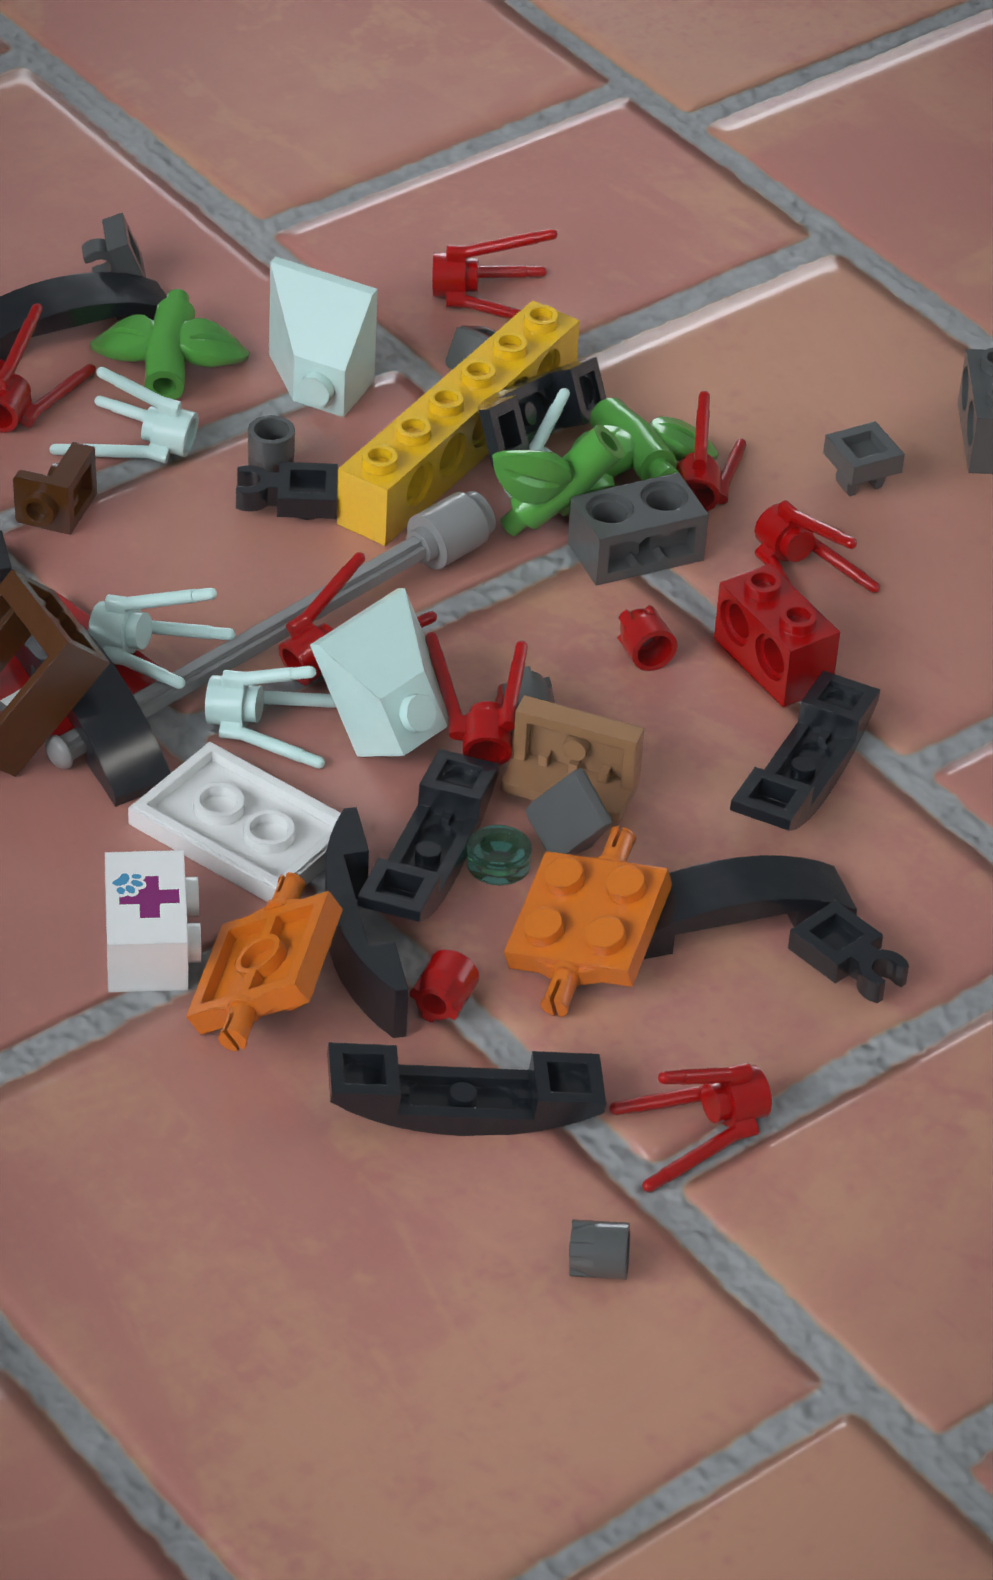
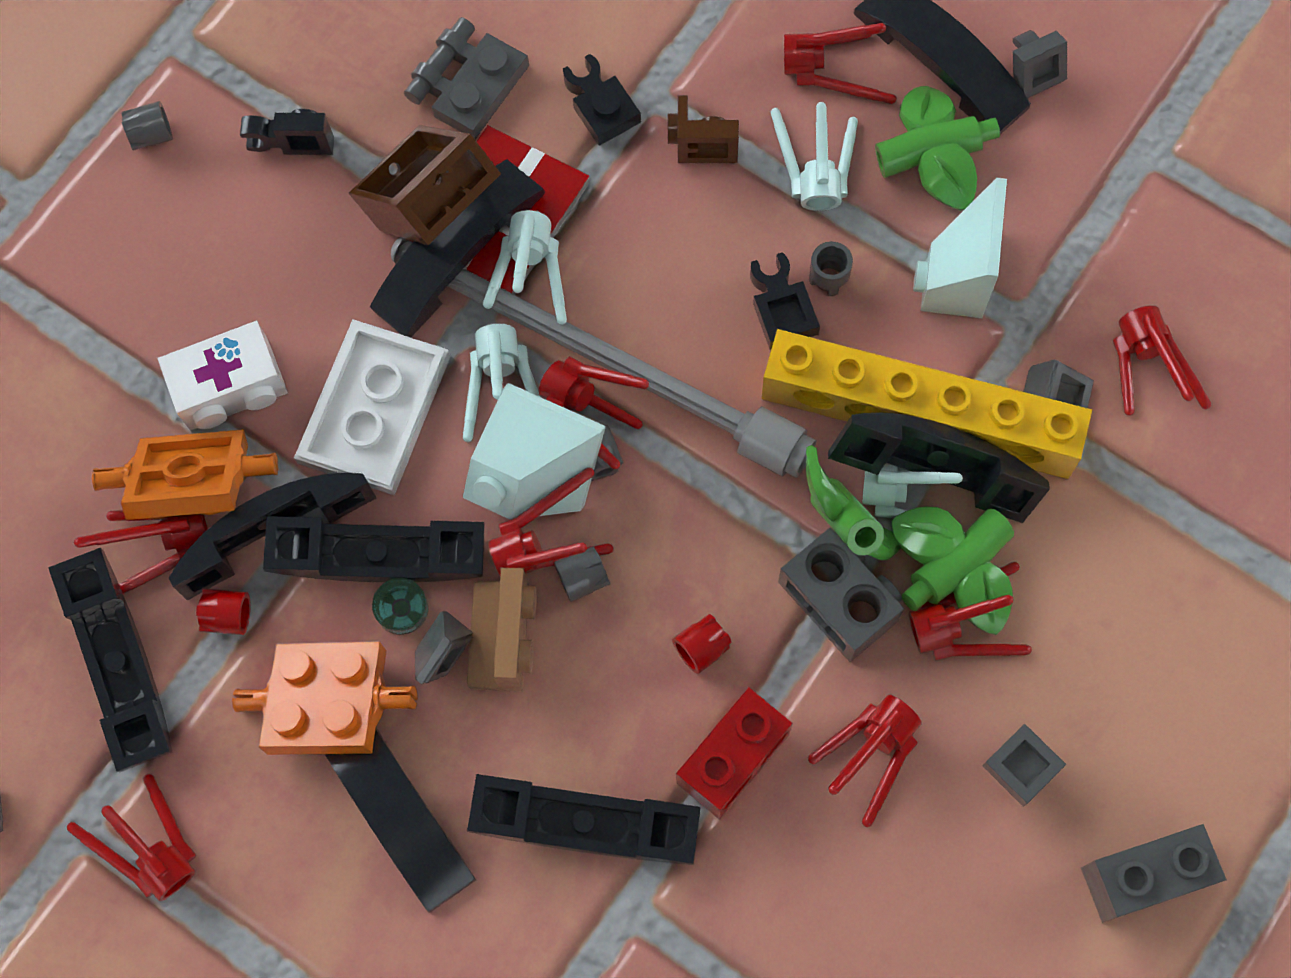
camera: 80 degrees right, 30 degrees up
(327, 1010) = (176, 533): none -> red plant
(845, 945) = (365, 910): black plate -> none

